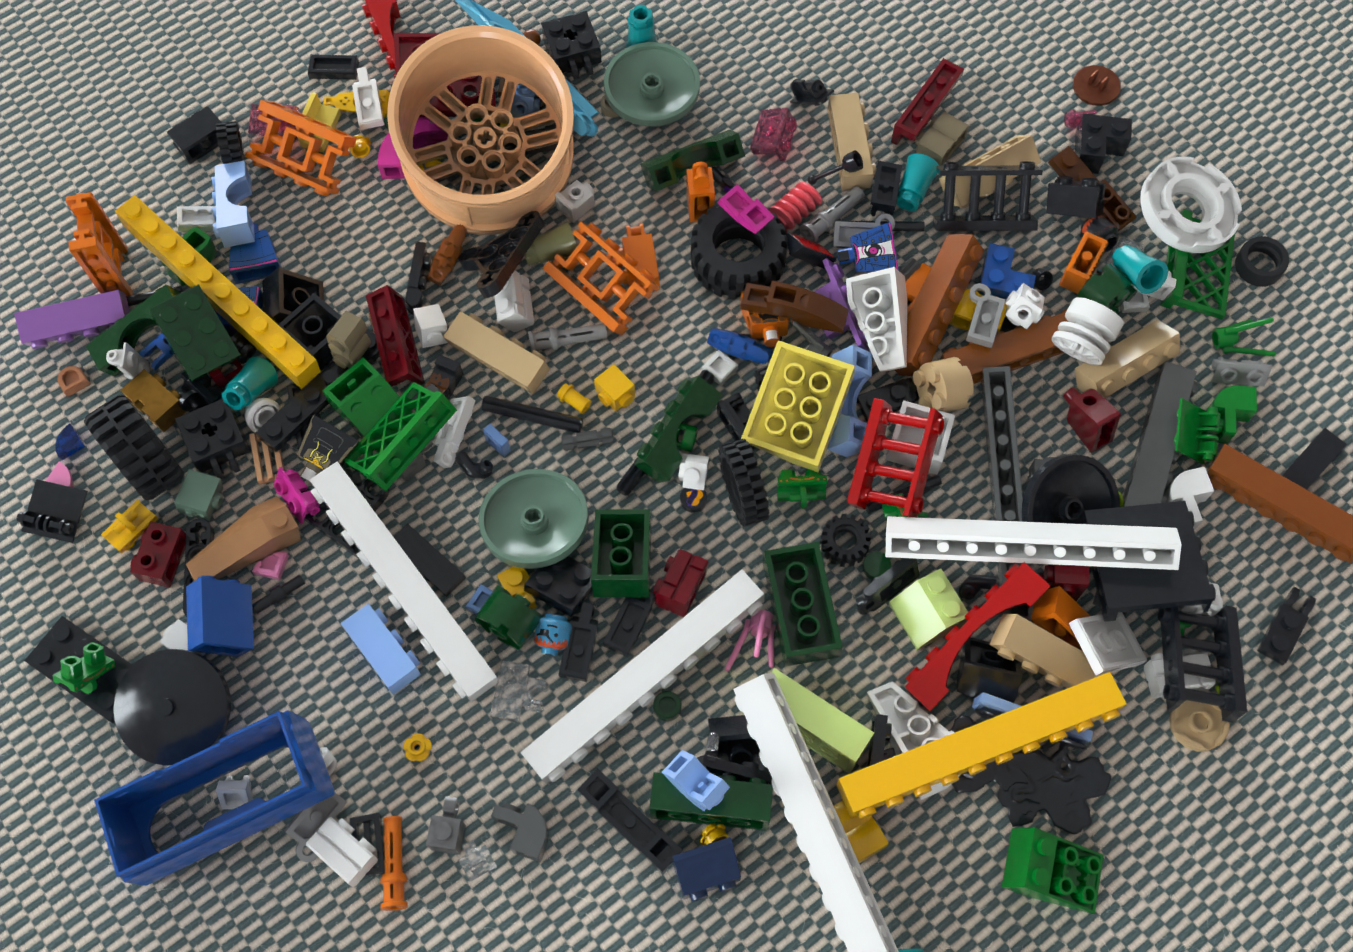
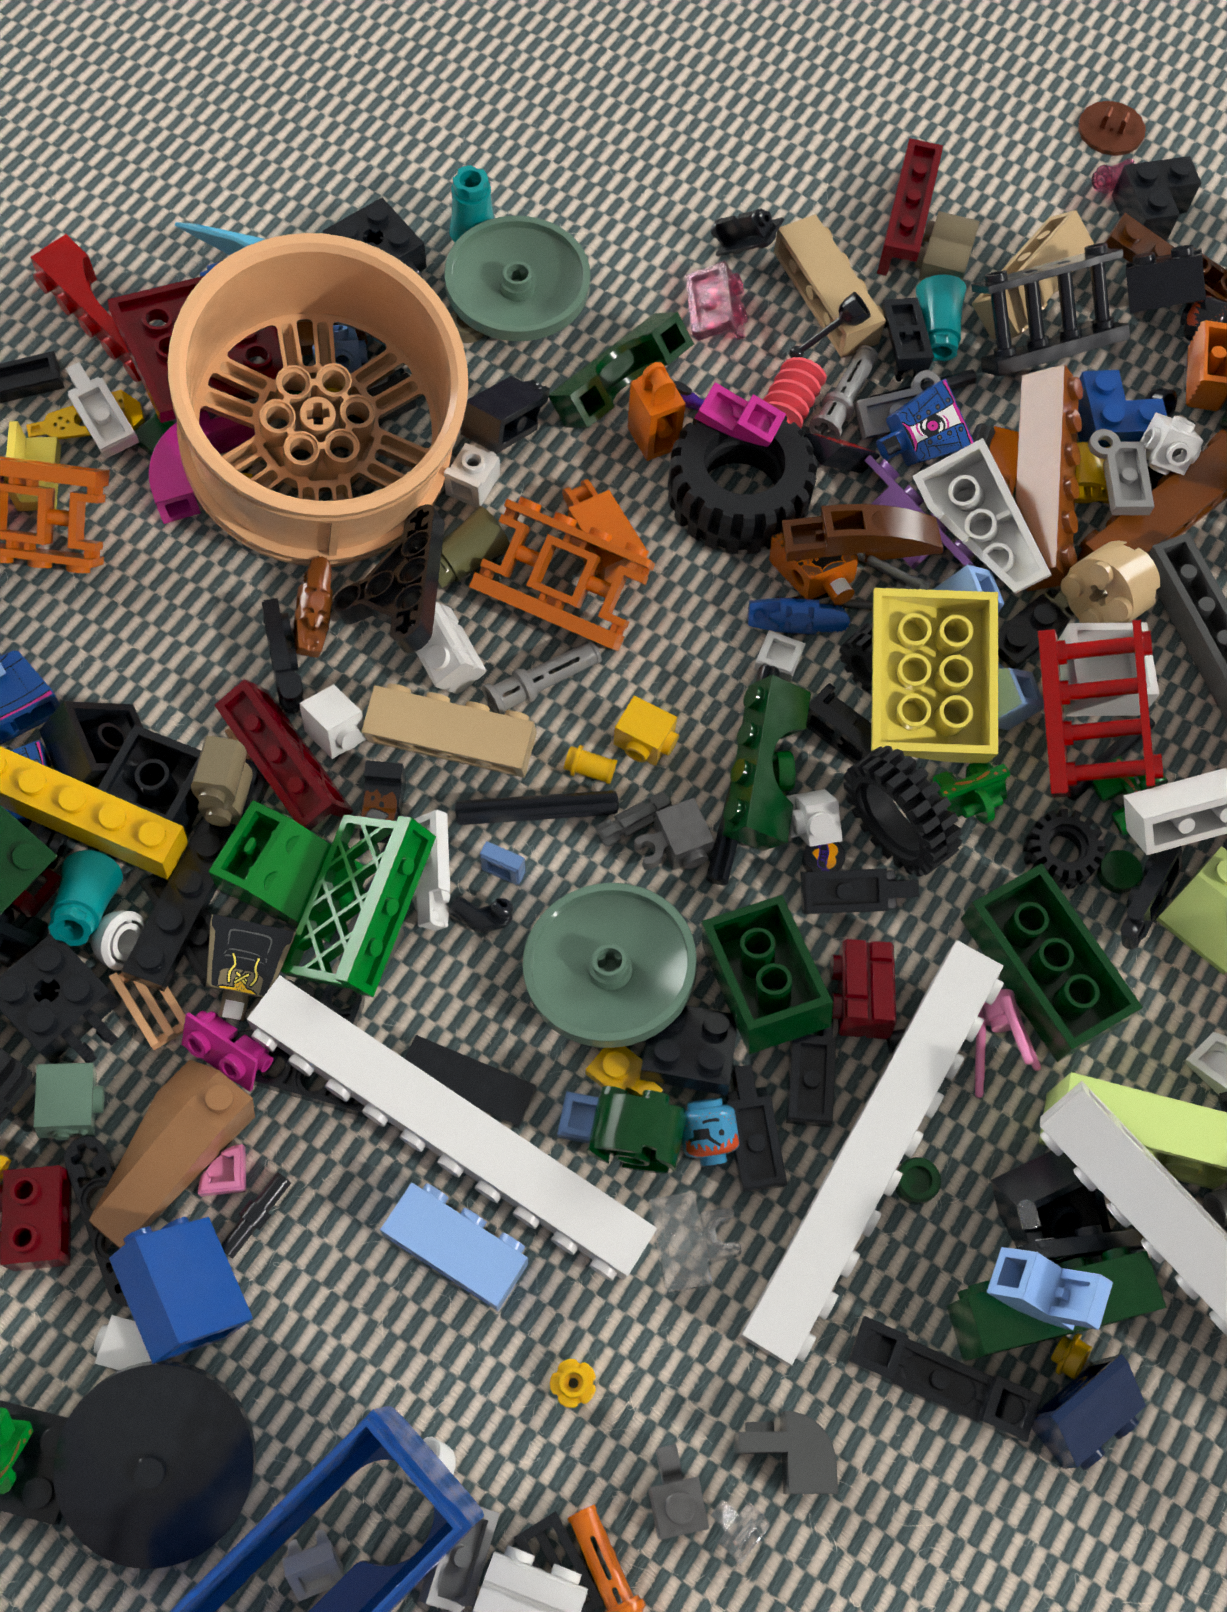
camera: 25 degrees left, 0 degrees up
(363, 149) = (118, 484): yellow plate -> none
(608, 167) = (504, 413): none -> black hinge
(609, 457) = (680, 835): none -> flat silver brick
(701, 523) = (853, 890): none -> black hinge

